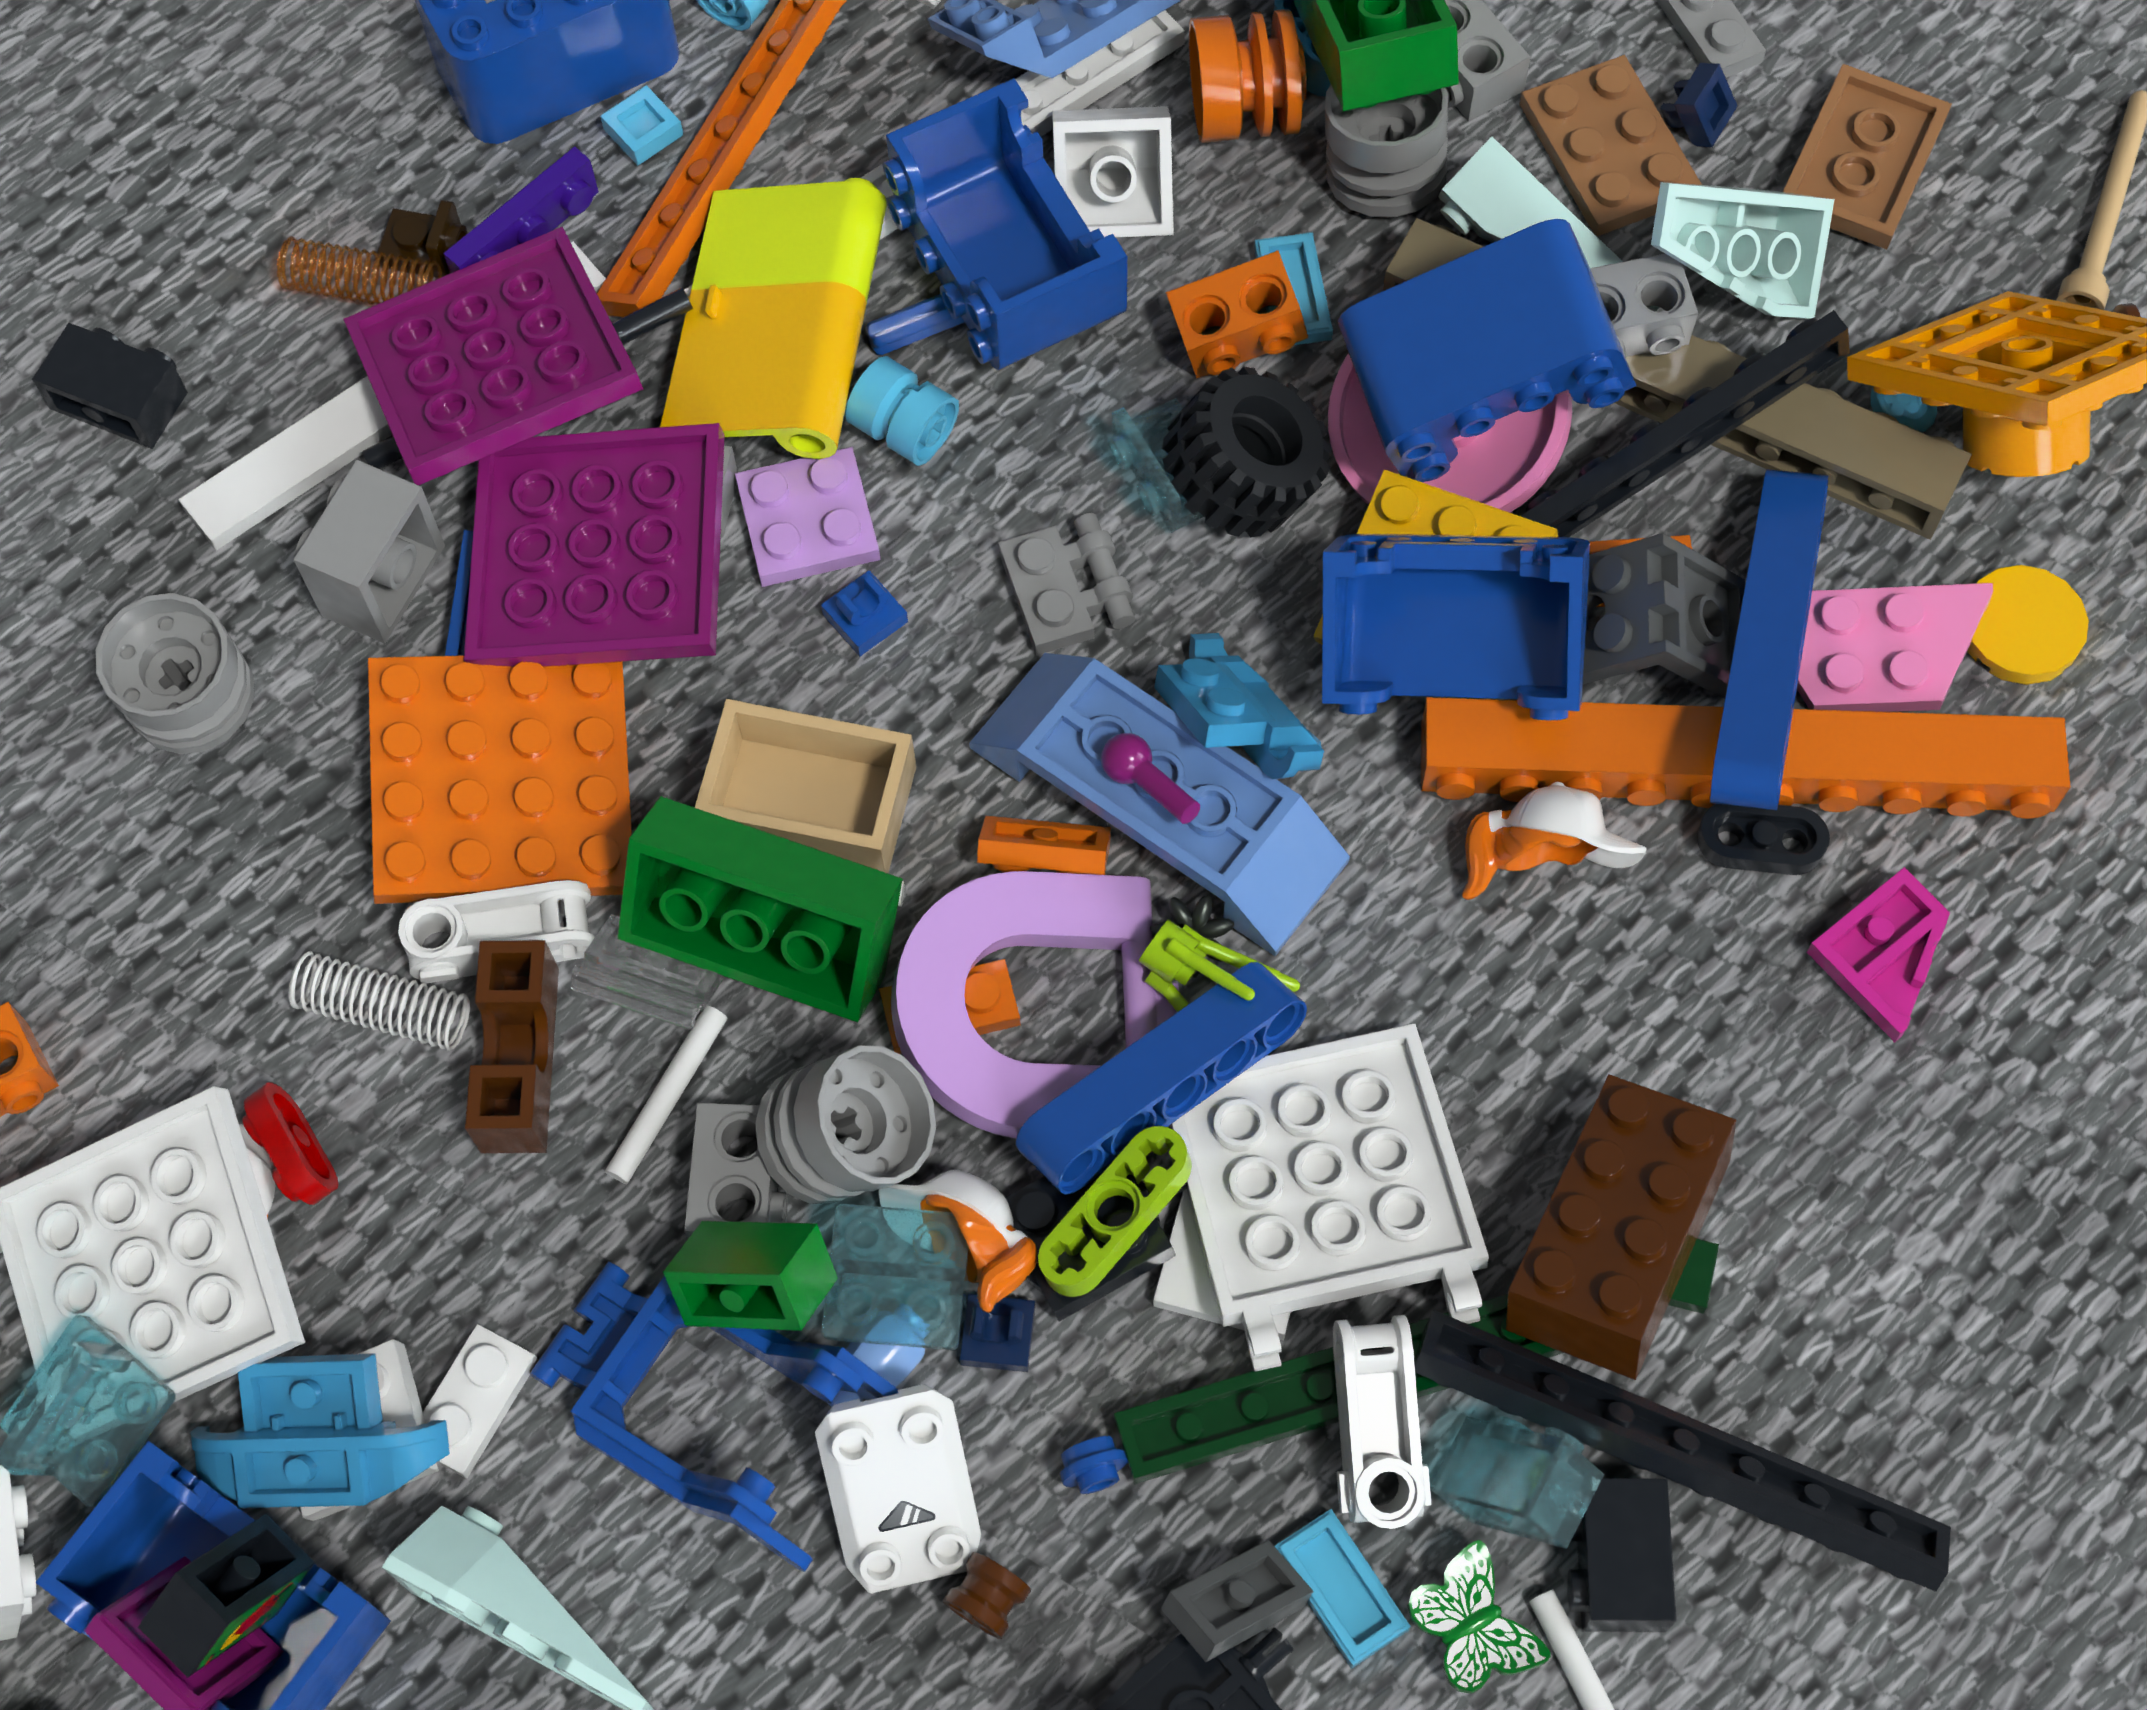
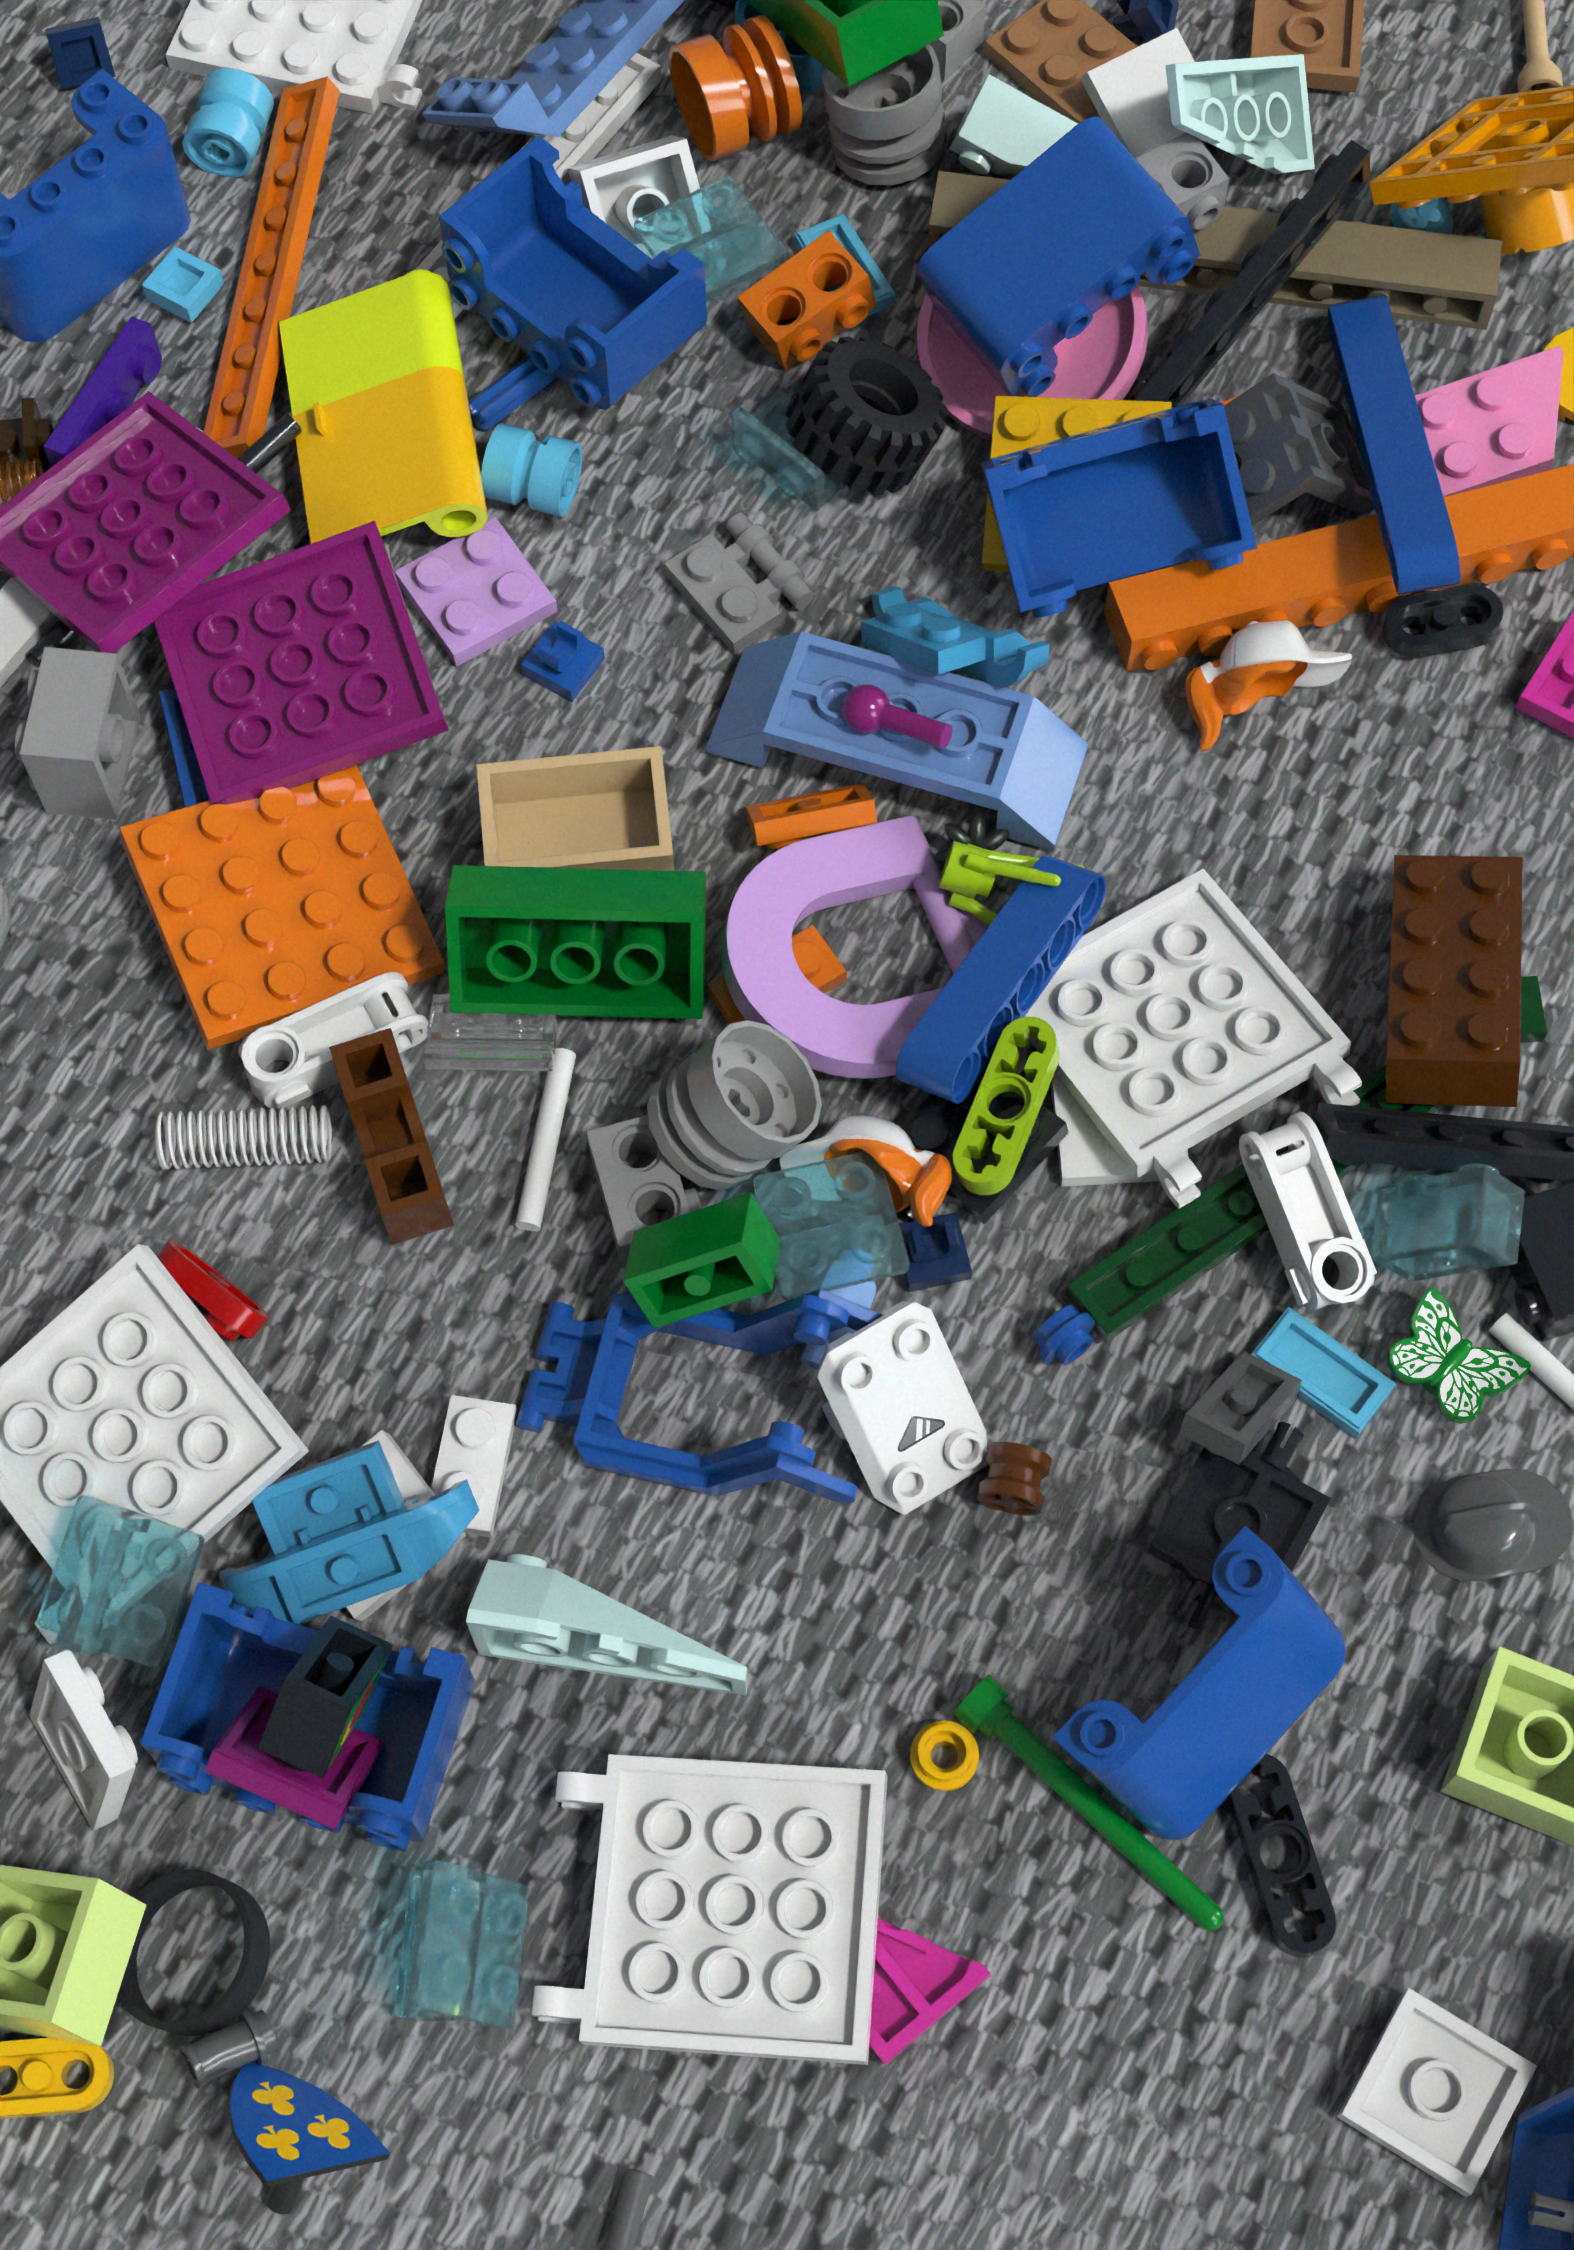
camera: 20 degrees left, 0 degrees up
(1163, 224) = (719, 230): none -> clear light blue bracket
(1633, 186) = (1134, 92): none -> white tile

